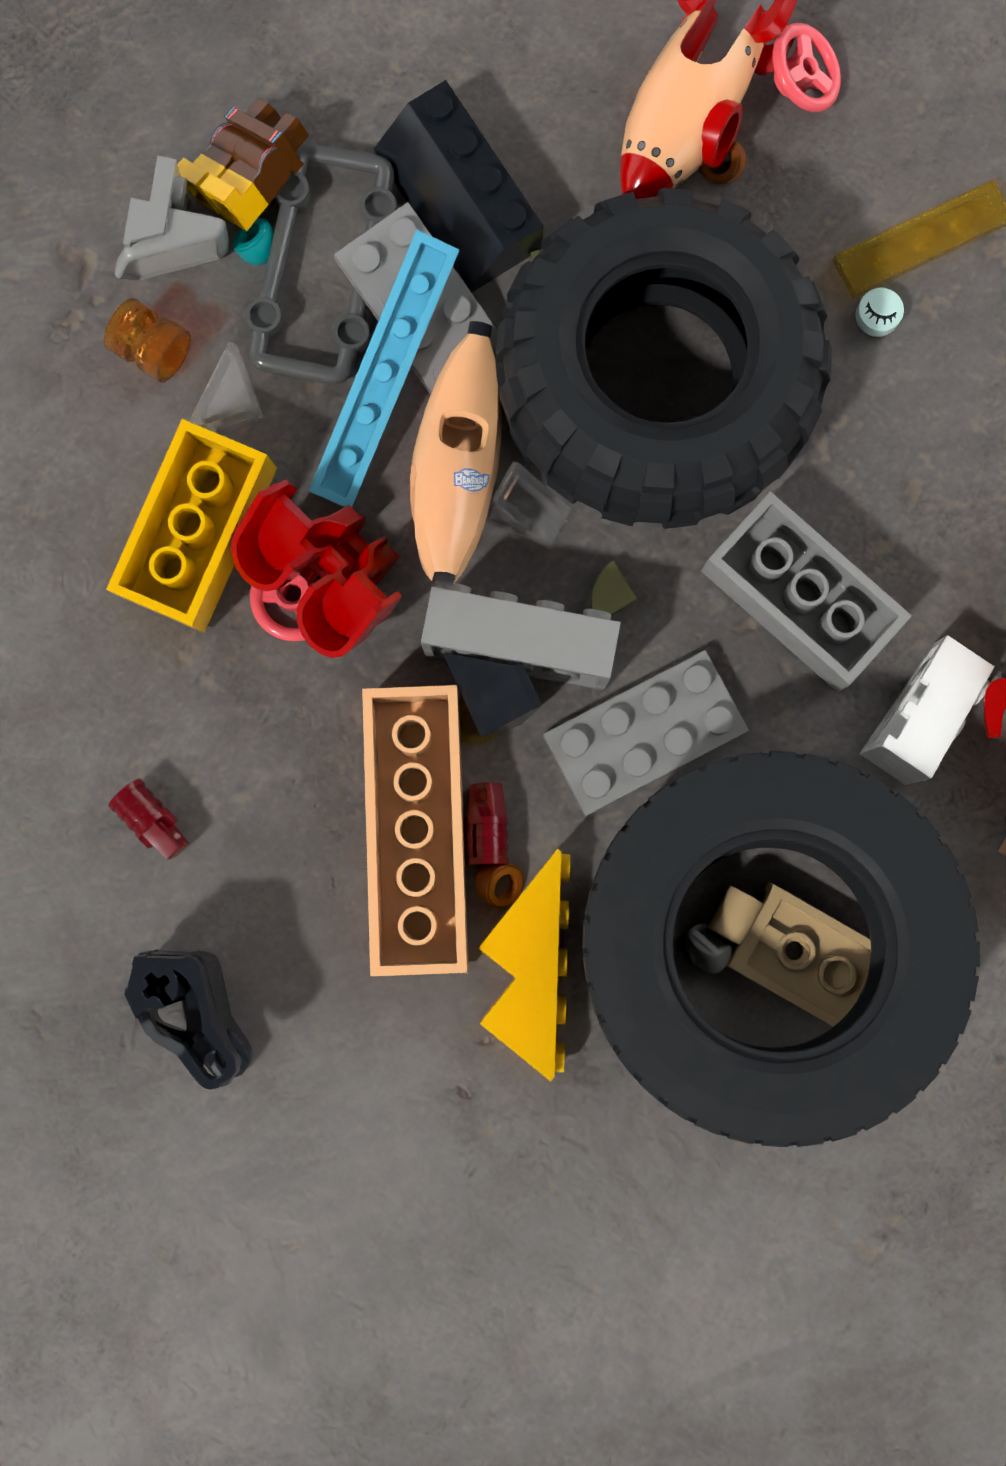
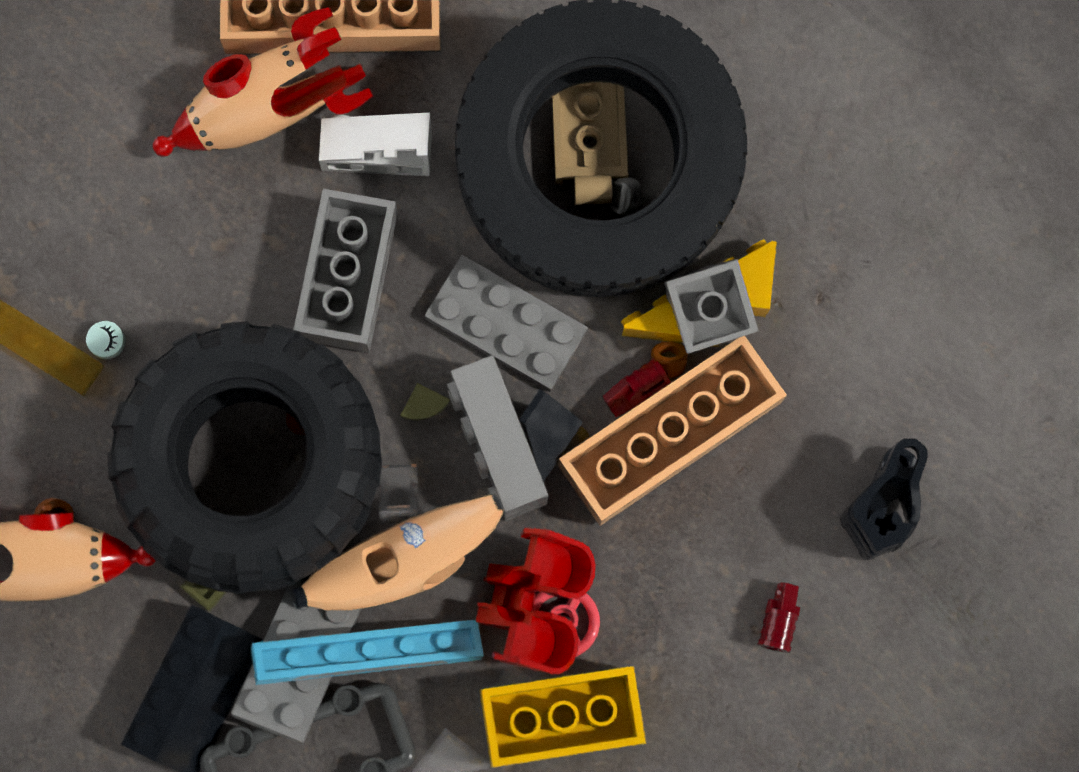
camera: 130 degrees left, 5 degrees down
(520, 955) = (711, 305): none -> light grey slope

